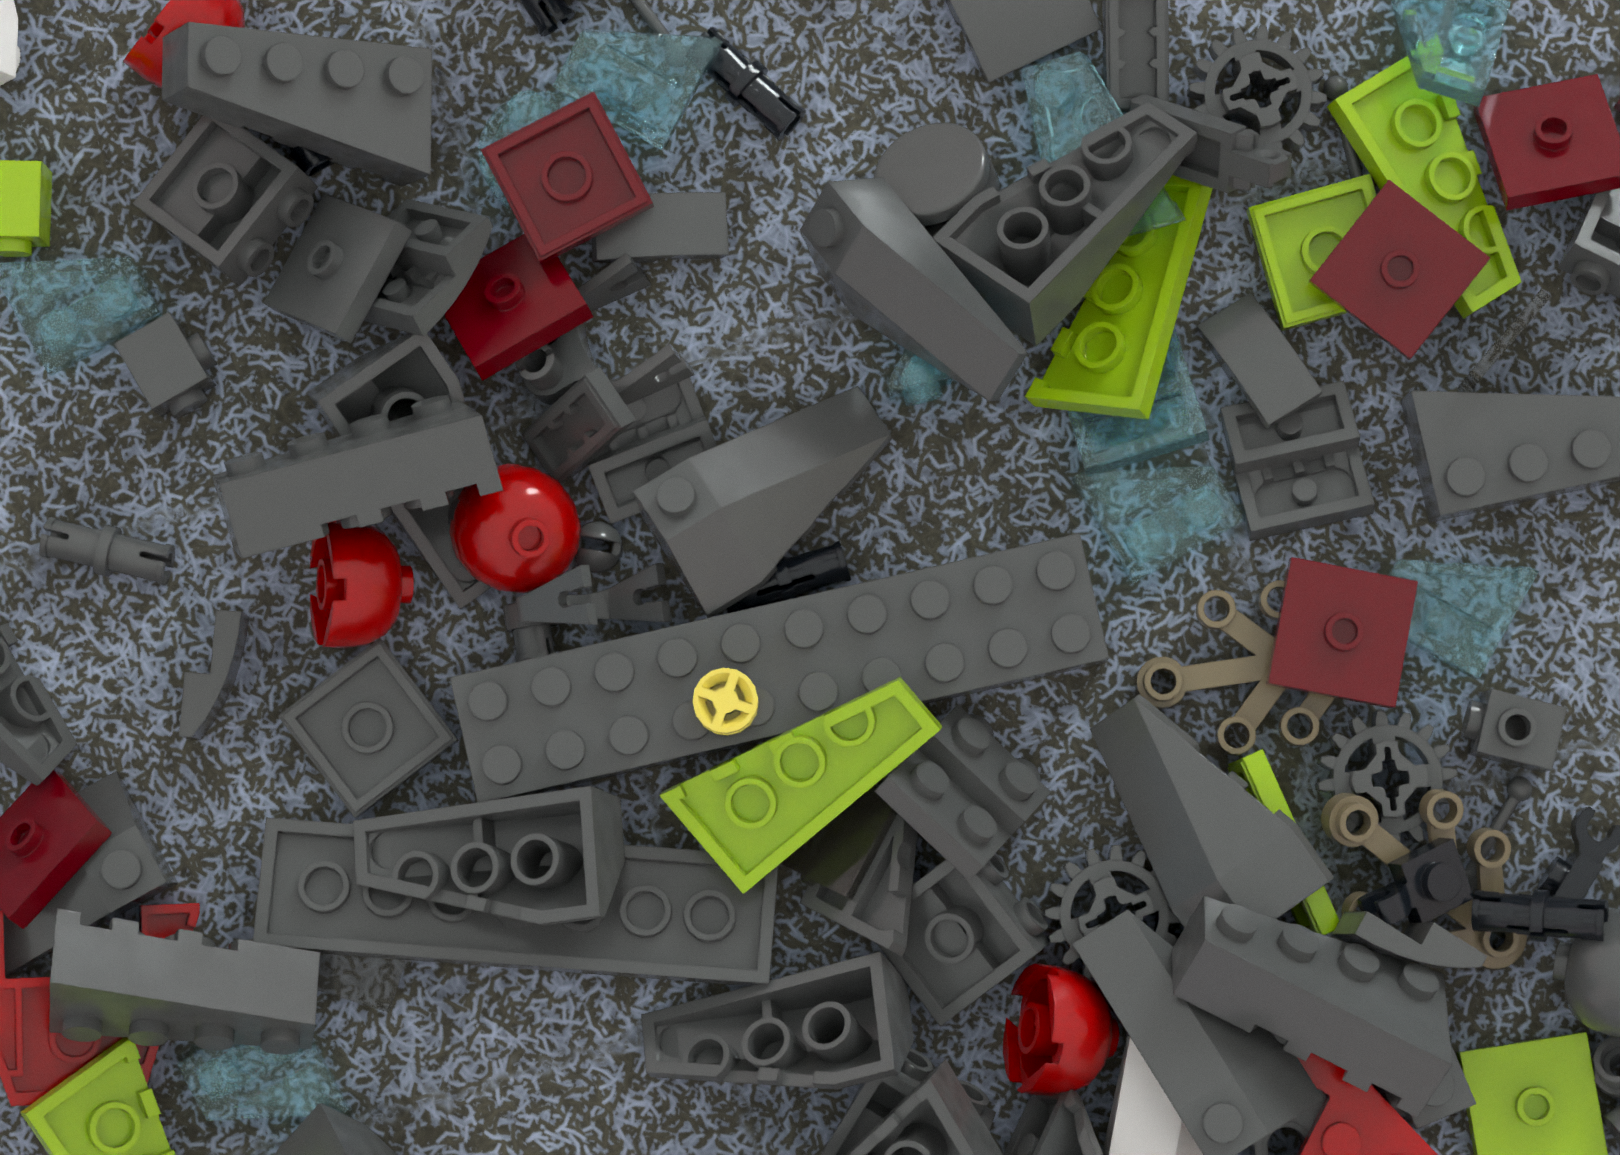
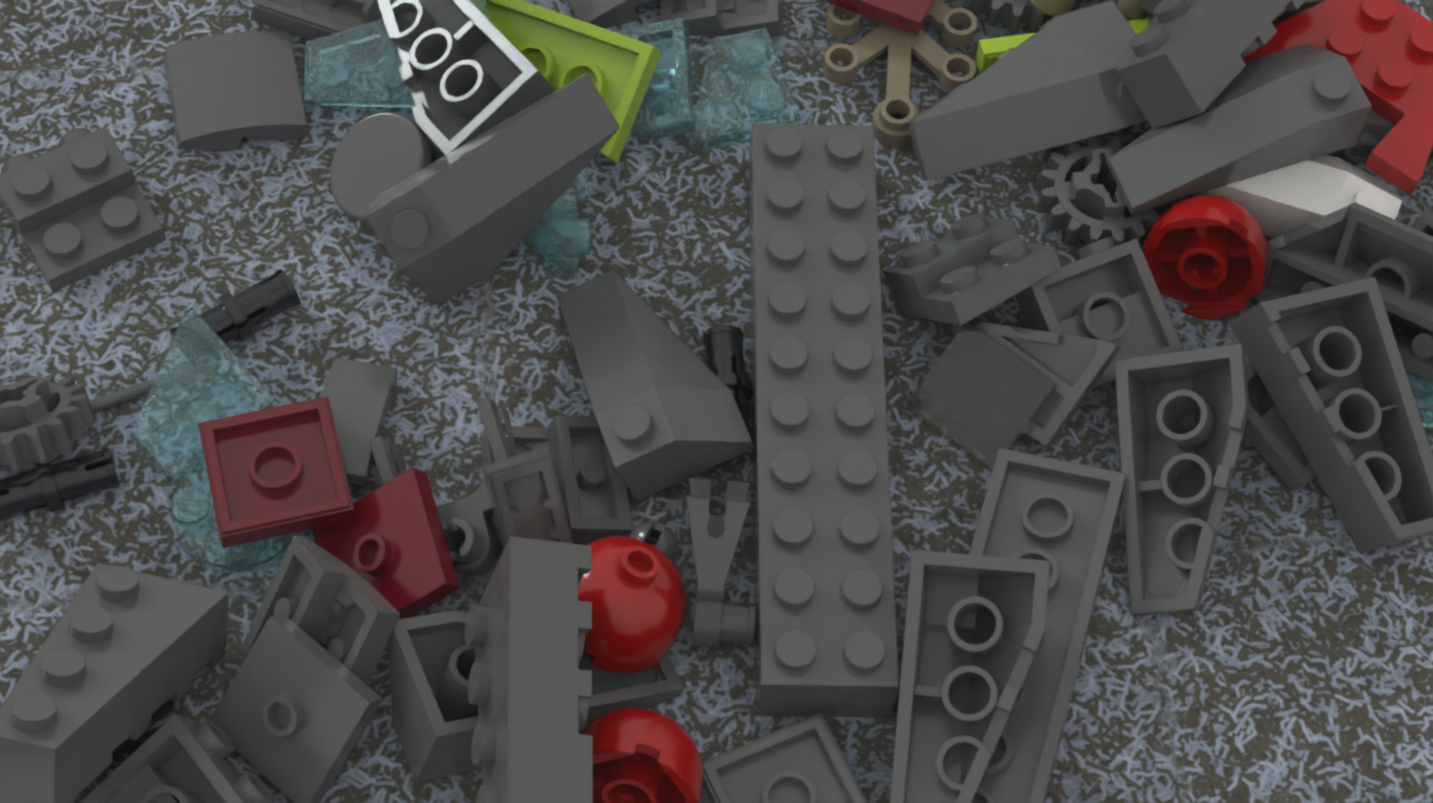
camera: 80 degrees left, 25 degrees down
(720, 689) = (848, 403): light yellow wheel -> none
(789, 788) = (940, 402): lime wing -> none

